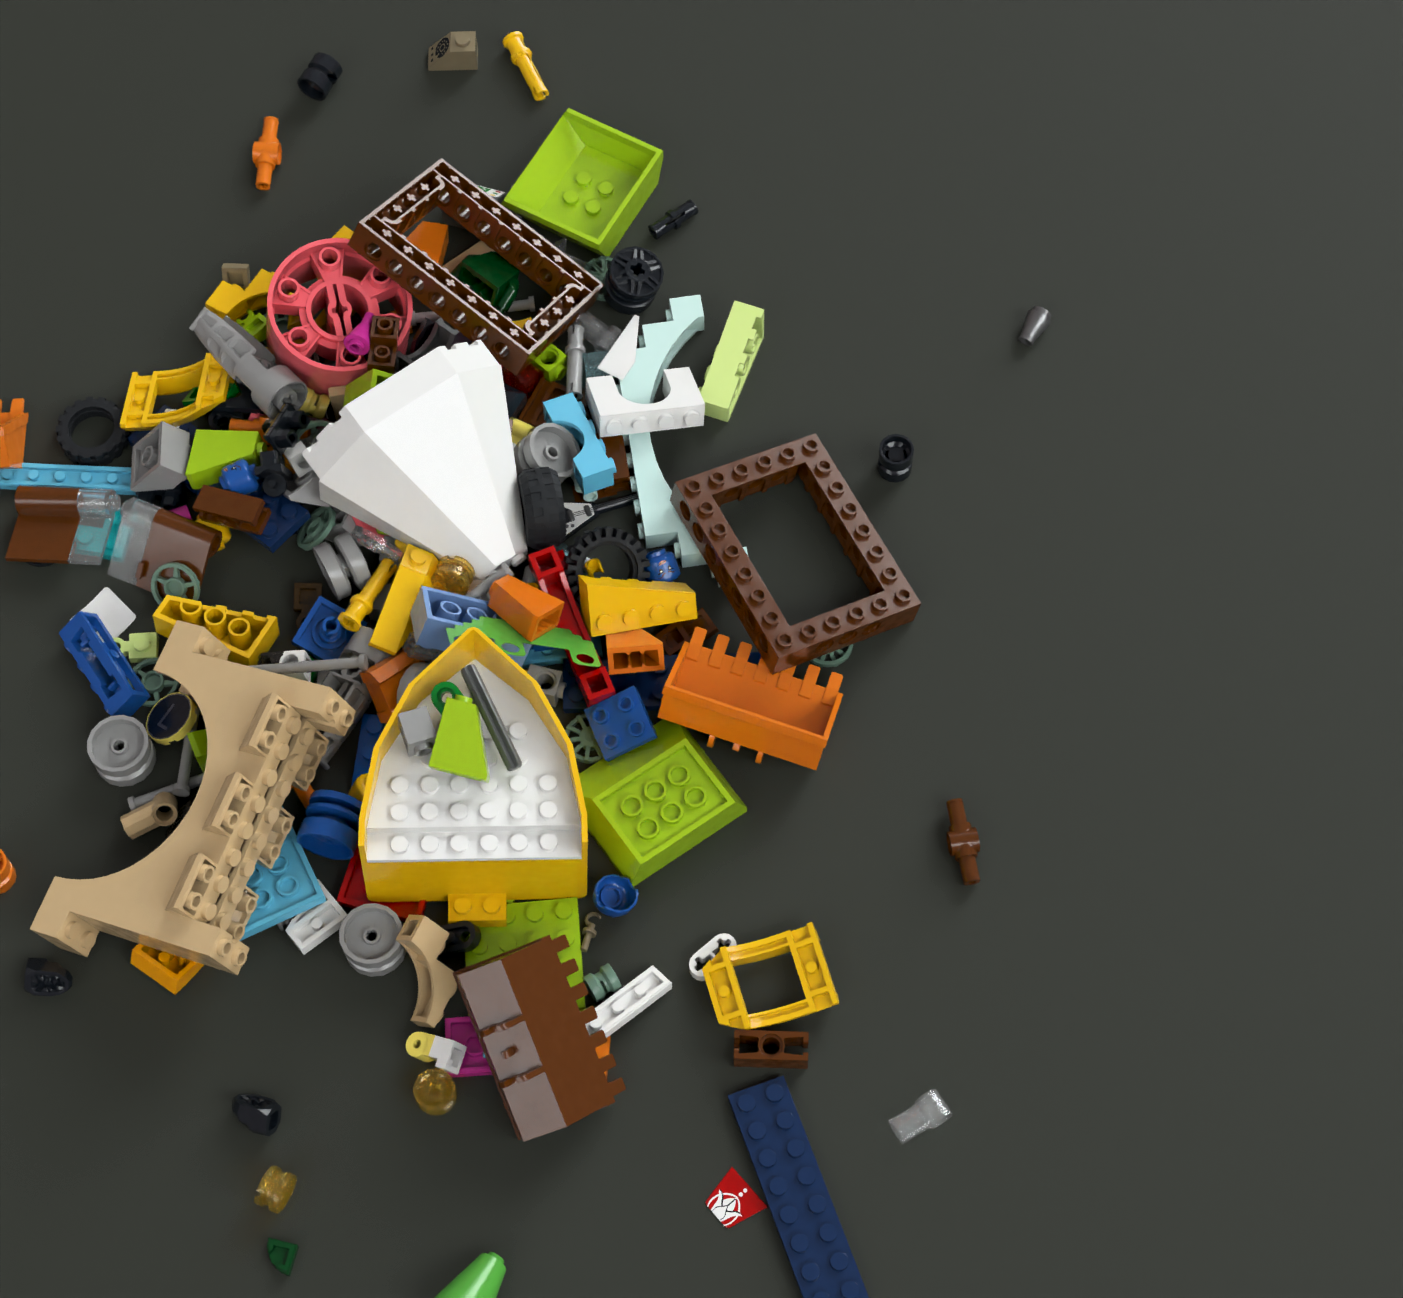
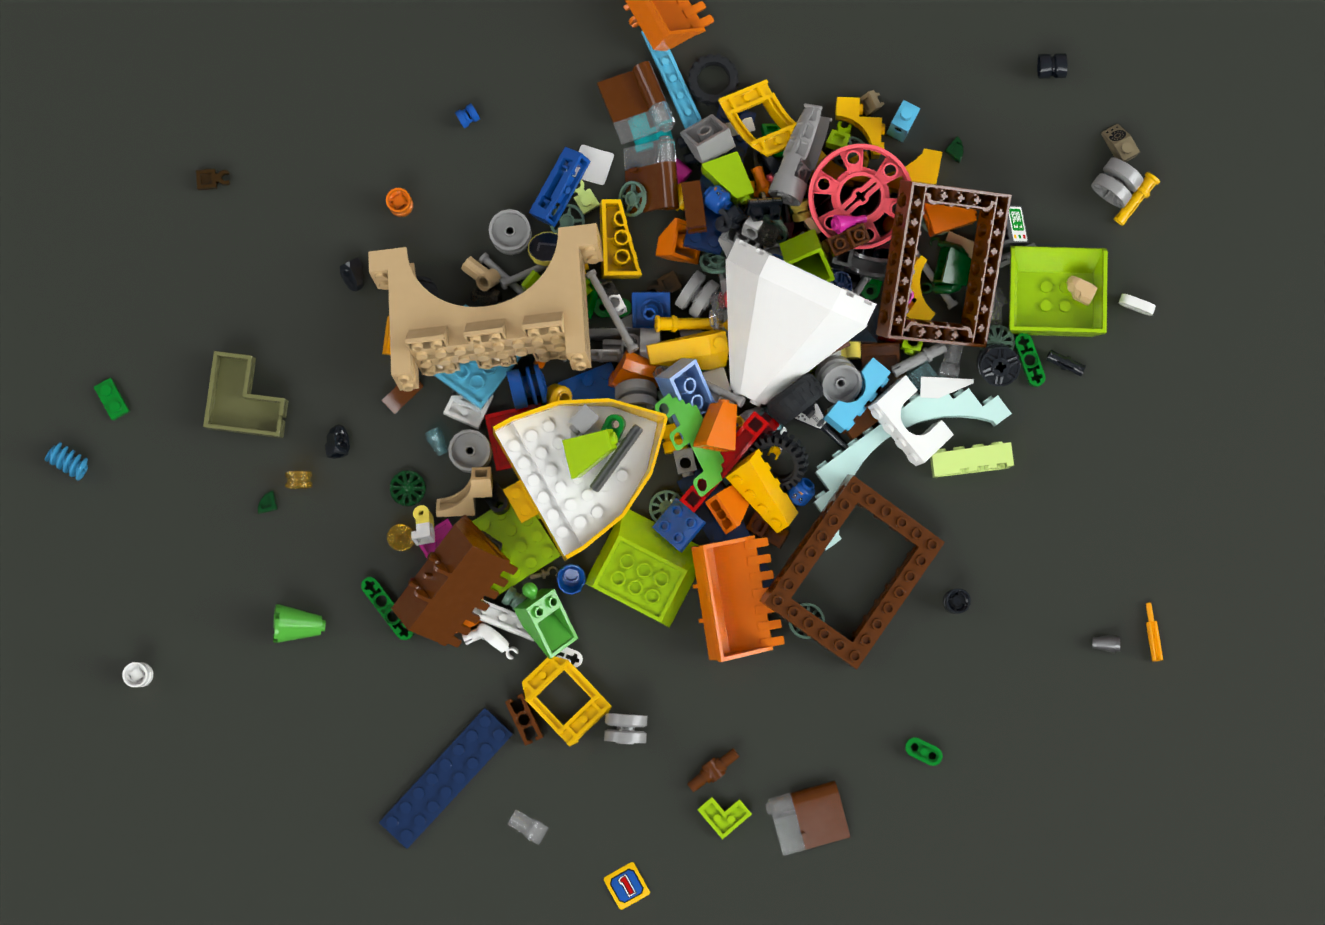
camera: 65 degrees right, 20 degrees up
(123, 1227) = (231, 404): none -> olive piece
(244, 994) = (397, 399): none -> reddish brown slope
(264, 569) = (671, 244): none -> orange slope
(267, 153) = (975, 65): orange pin -> none
(275, 242) = (903, 120): none -> medium azure torso
(333, 980) = (436, 440): none -> clear light blue cone
(349, 217) = (955, 149): none -> dark green tile
(373, 1051) = (407, 488): none -> dark green wheel
(453, 574) = (719, 370): clear yellow wheel -> none
(495, 69) = (1117, 182): none -> light grey wheel
(521, 1165) = (385, 610): none -> green beam
(597, 156) = (1081, 290): none -> tan rock
(634, 1036) = (490, 635): none -> white arm
(648, 118) = (1137, 304): none -> white beam
(650, 951) = (545, 619): none -> bright green slope
(666, 250) = (1039, 371): none -> green beam
(734, 1200) = (427, 742): red sticker -> none
(851, 918) = (625, 729): none -> light grey wheel
(1035, 863) = (724, 821): none -> lime plate
(1050, 275) = (1153, 635): none -> light orange axle
(1064, 585) = (923, 751): none -> green plate
(1064, 1029) = (626, 885): none -> sticker
(1083, 756) = (808, 817): none -> reddish brown door

